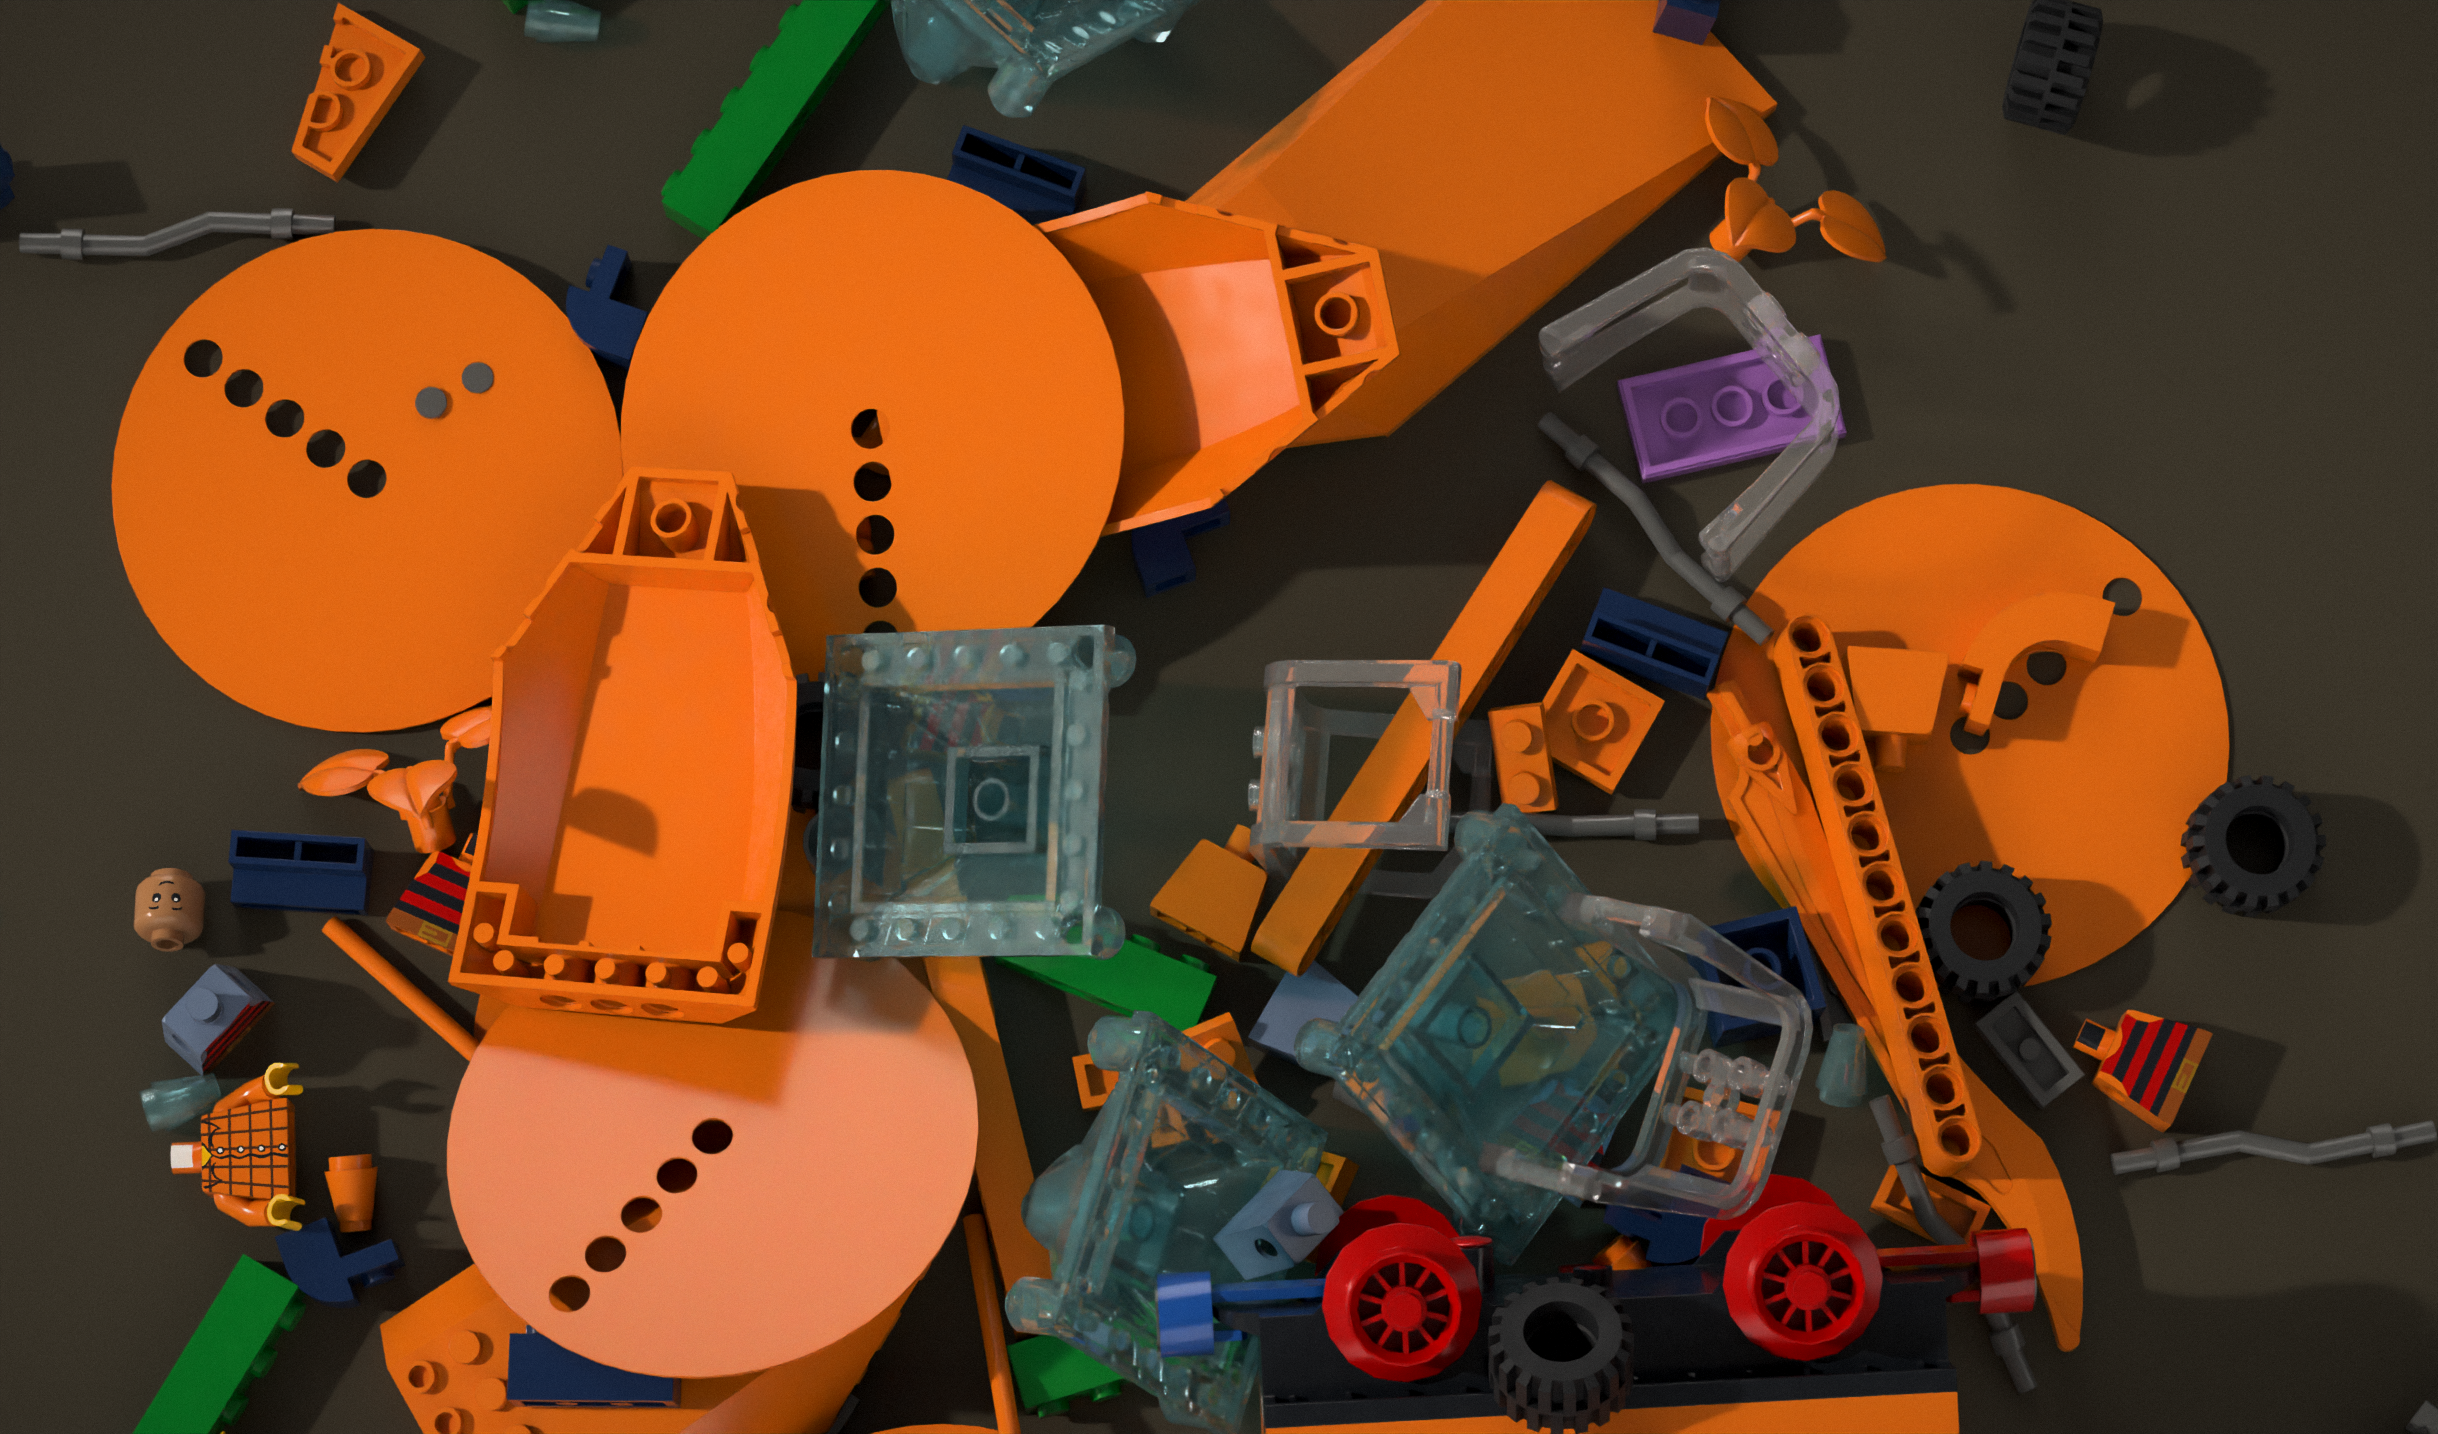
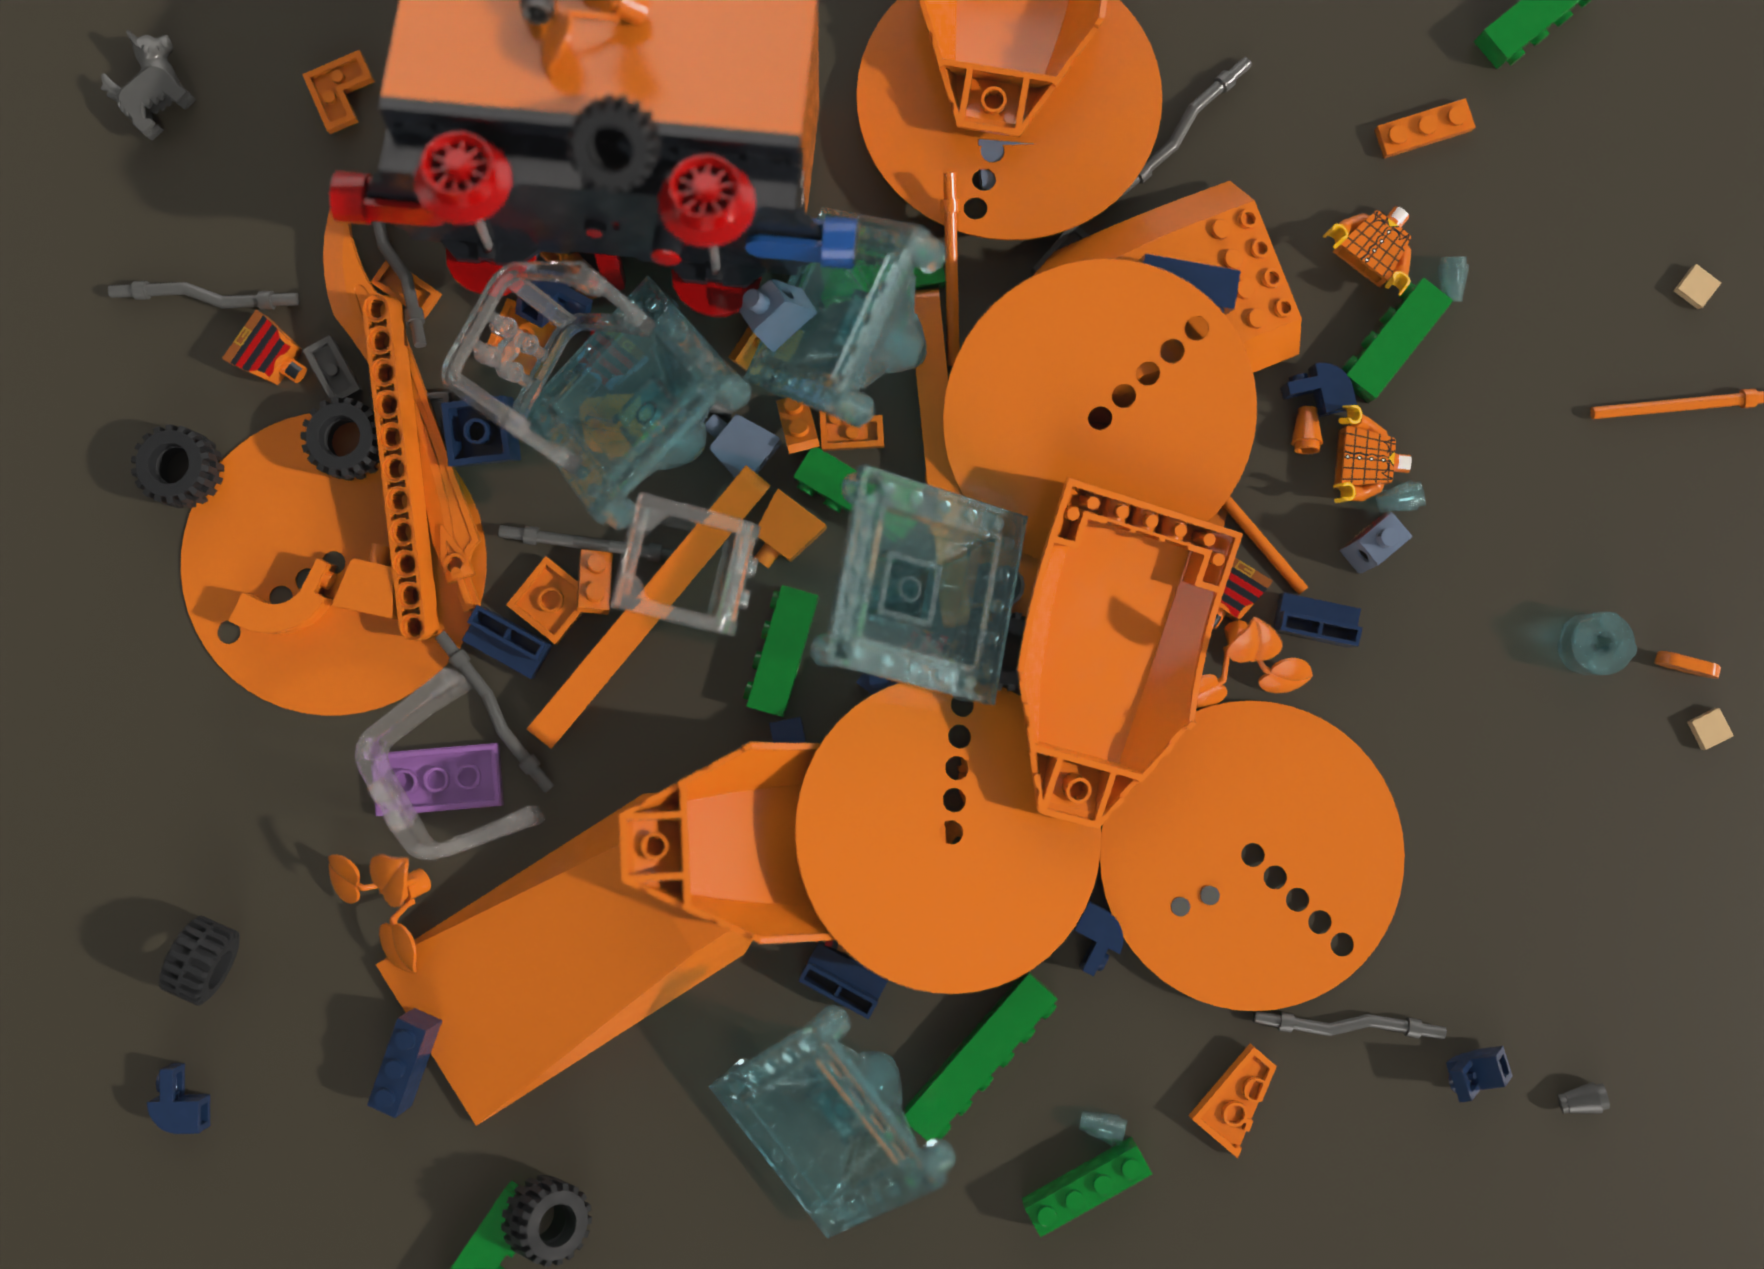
camera: 175 degrees left, 10 degrees up
(169, 909) = (1396, 609): medium nougat head -> none
(1192, 693) = (782, 651): none -> green brick
(1844, 1067) = (433, 383): clear light blue cone -> none

